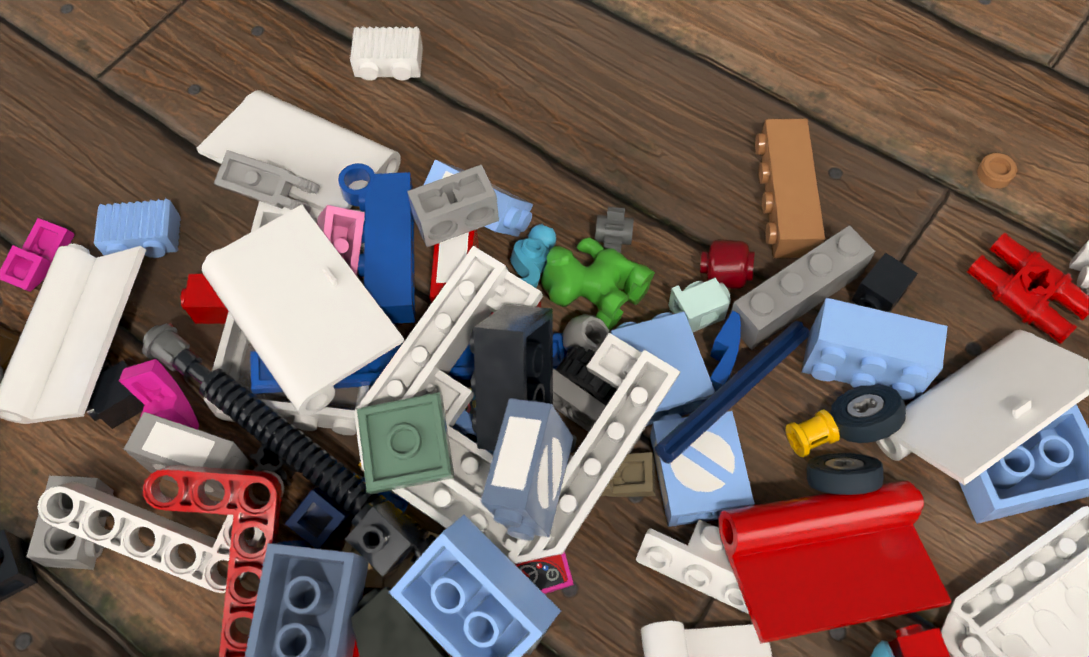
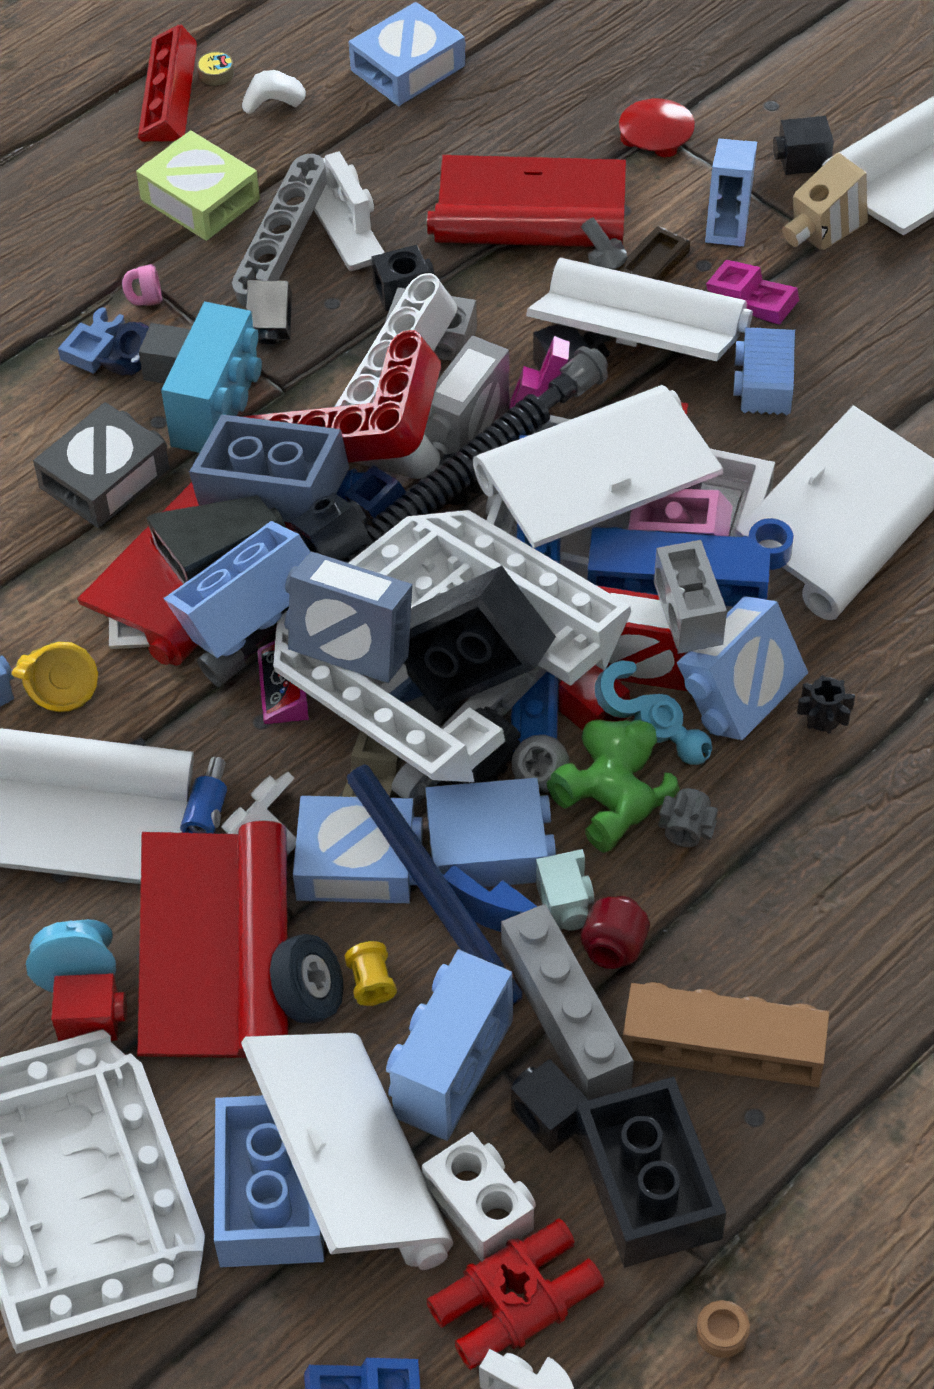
camera: 100 degrees right, 10 degrees down
(261, 181) = (783, 458): light grey hinge -> none
(405, 443) = (421, 543): sand green tile -> none
(490, 154) = (825, 704): none -> black gear
(692, 611) = (205, 800): none -> blue piece
(868, 413) = (371, 1023): black bush -> none
(921, 211) = (650, 1172): none -> black brick
(974, 322) = (469, 1201): none -> white brick

